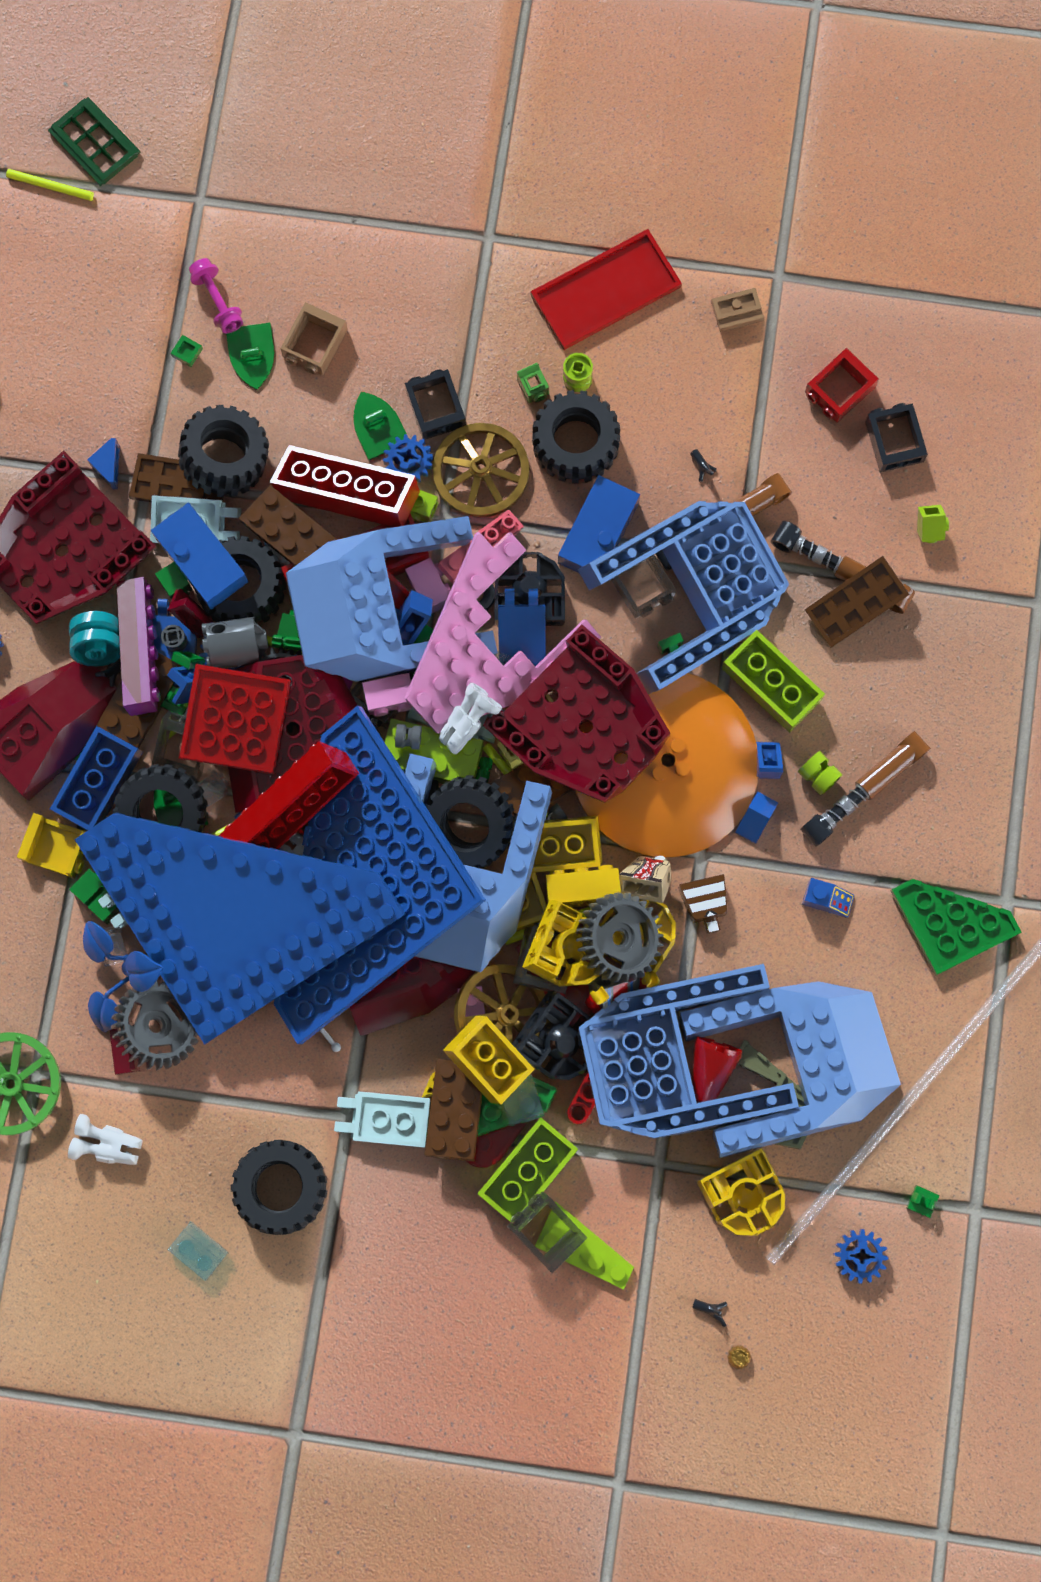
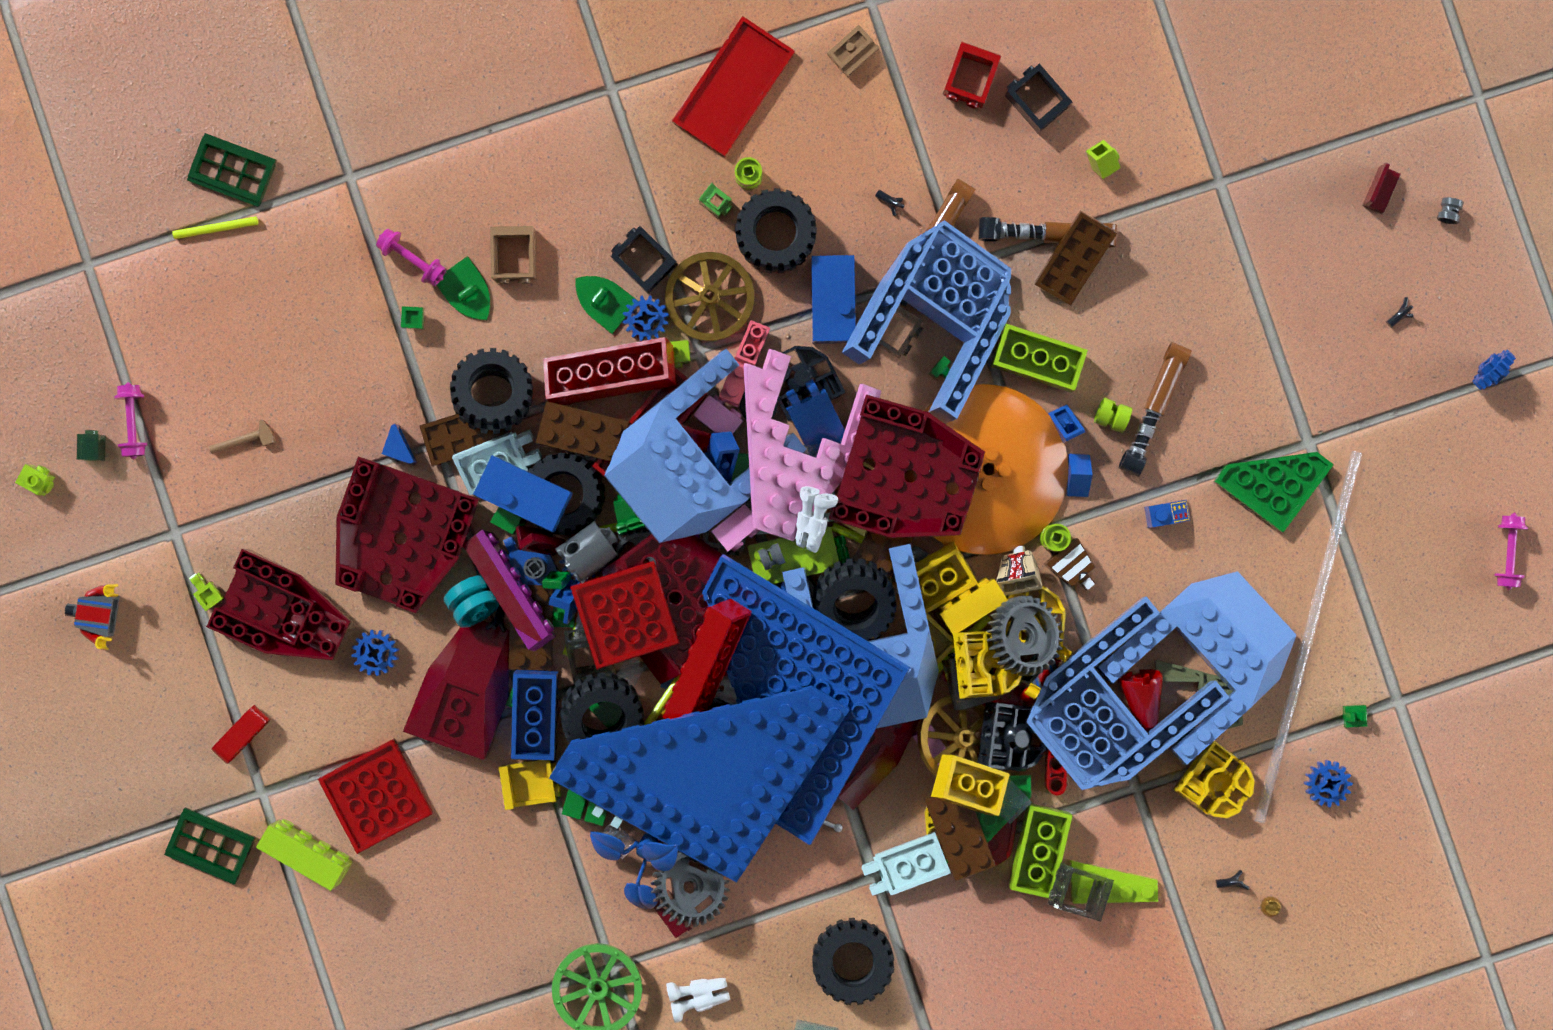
camera: 30 degrees left, 10 degrees up
(701, 863) = (1055, 537): none -> lime wheel

